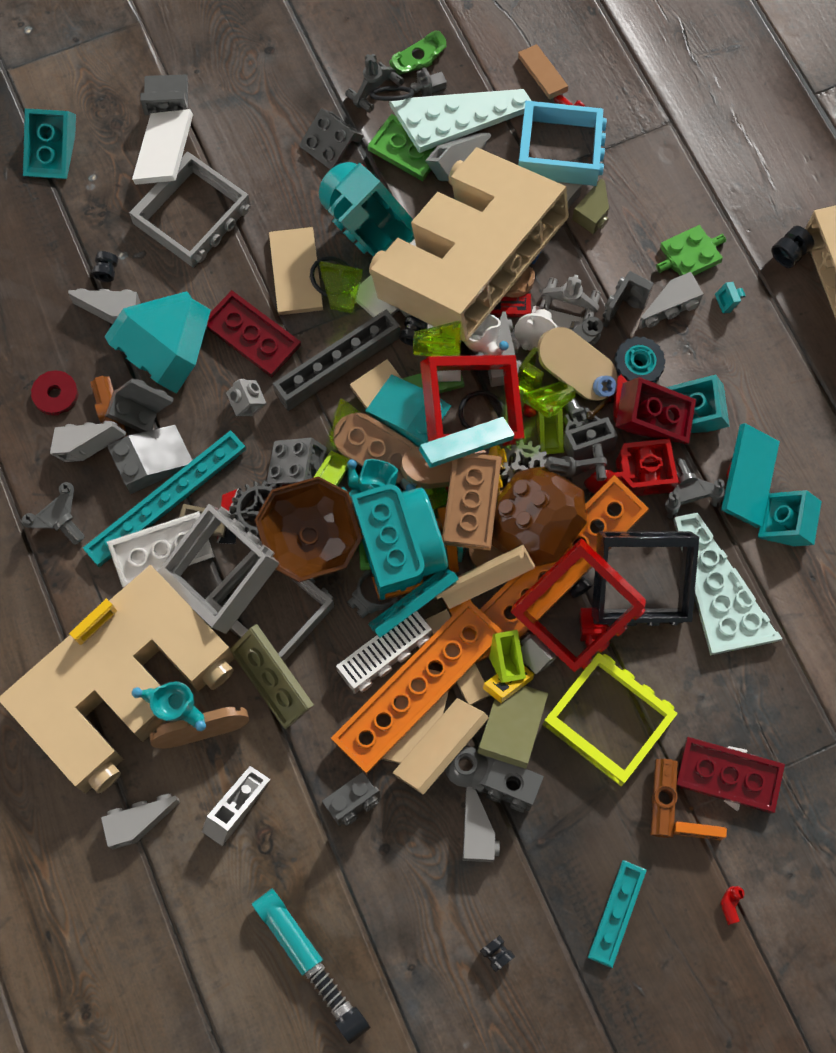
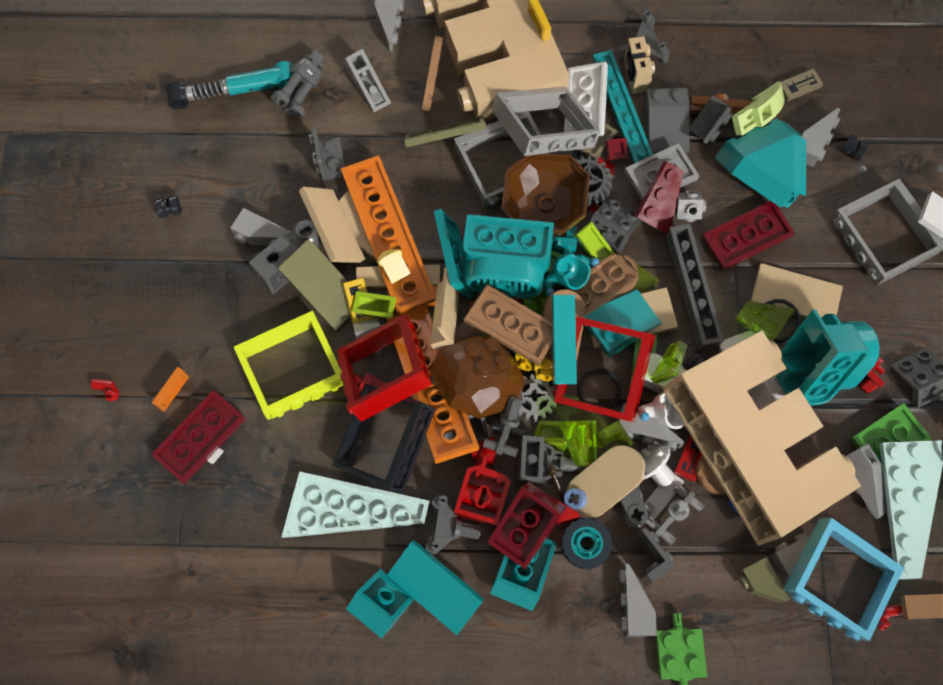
camera: 115 degrees right, 0 degrees up
(45, 343) = (801, 84): none -> dark tan tile
(48, 382) = (757, 68): dark red tile -> none
(83, 441) = (700, 75): light grey slope -> none
(96, 507) = (638, 65): none -> tan piece
(102, 361) = (761, 111): none -> yellowish green slope
(172, 703) = (449, 44): teal piece -> none
(207, 494) = (616, 149): none -> dark red plate
(222, 434) = (643, 172): none -> light grey plate
(259, 422) = (661, 198): none -> dark red wing
(261, 877) = (308, 73): none -> dark grey piece
(381, 653) = (424, 203): white brick -> none
(456, 656) = (393, 265): none -> light yellow tile
(617, 914) = (149, 304): teal tile -> none
(663, 814) = (219, 381): dark orange piece -> none
(729, 297) = (617, 664): teal tile -> none

